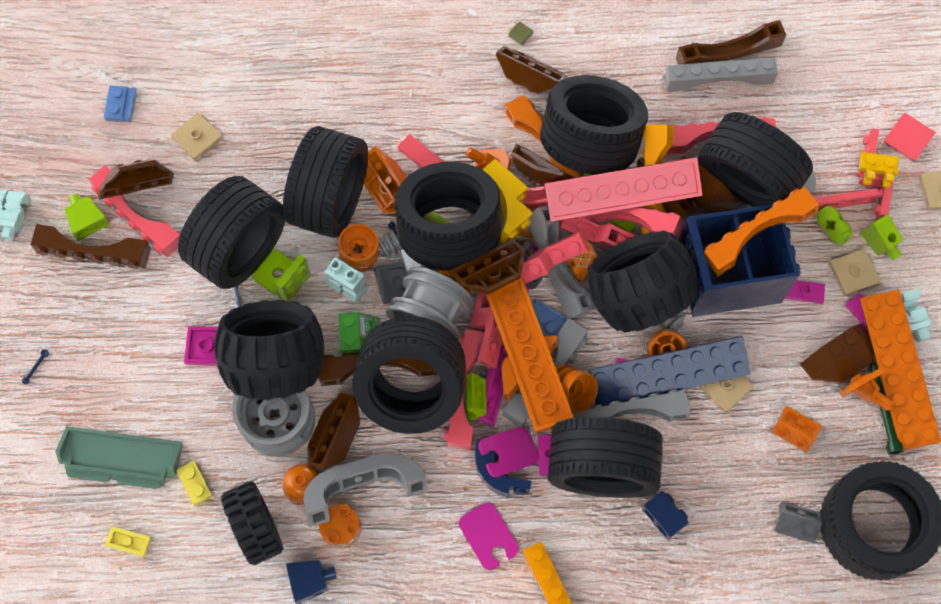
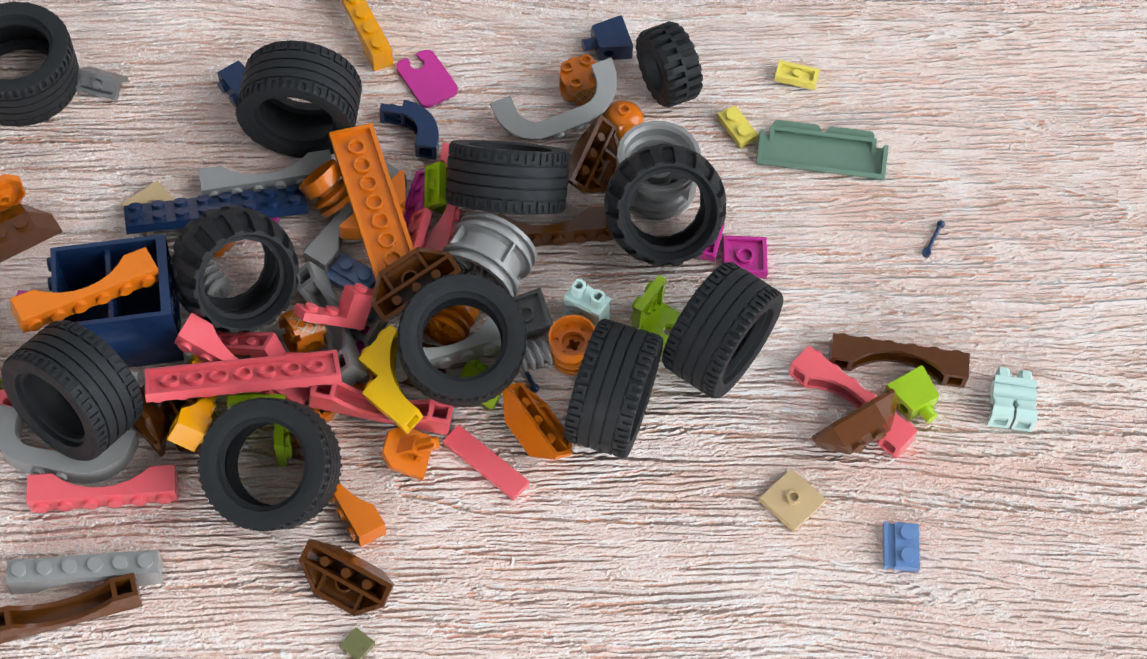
camera: 175 degrees right, 10 degrees down
(354, 329) = (568, 259): bright green slope -> none
(513, 449) = (400, 141): dark pink piece -> none
(536, 167) = (354, 433): reddish brown wedge -> none
(796, 429) = (81, 163): orange bracket -> none

